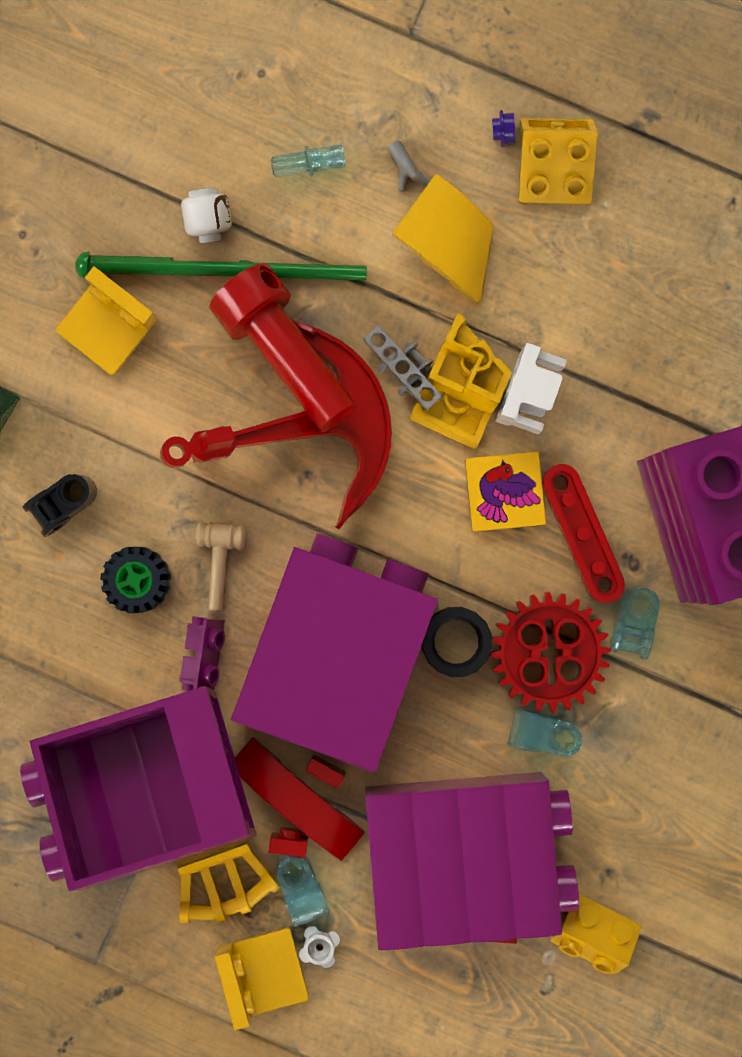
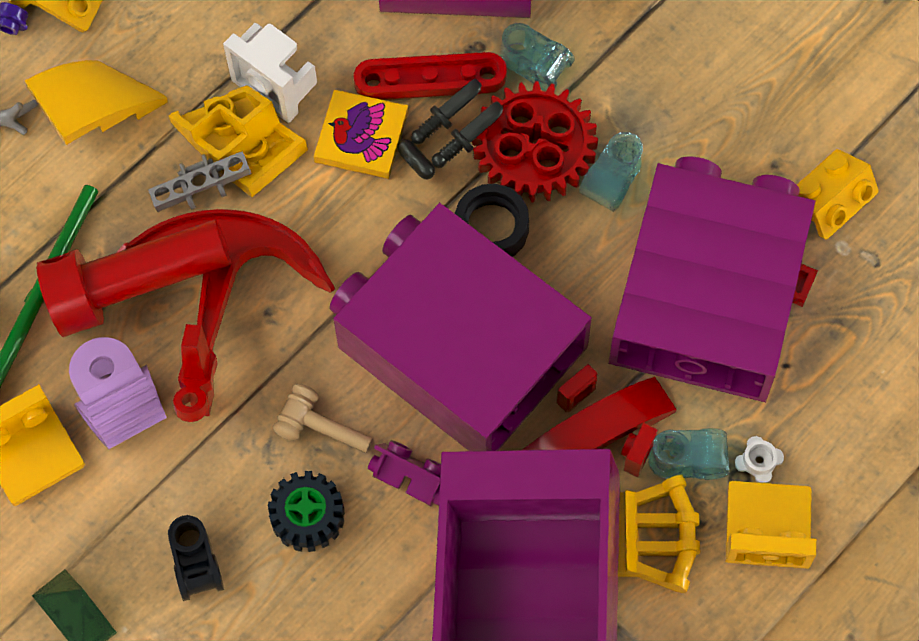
camera: 60 degrees left, 20 degrees down
(168, 390) = (113, 391): none -> lavender piece
(525, 588) = (417, 159): none -> pearl dark grey piece

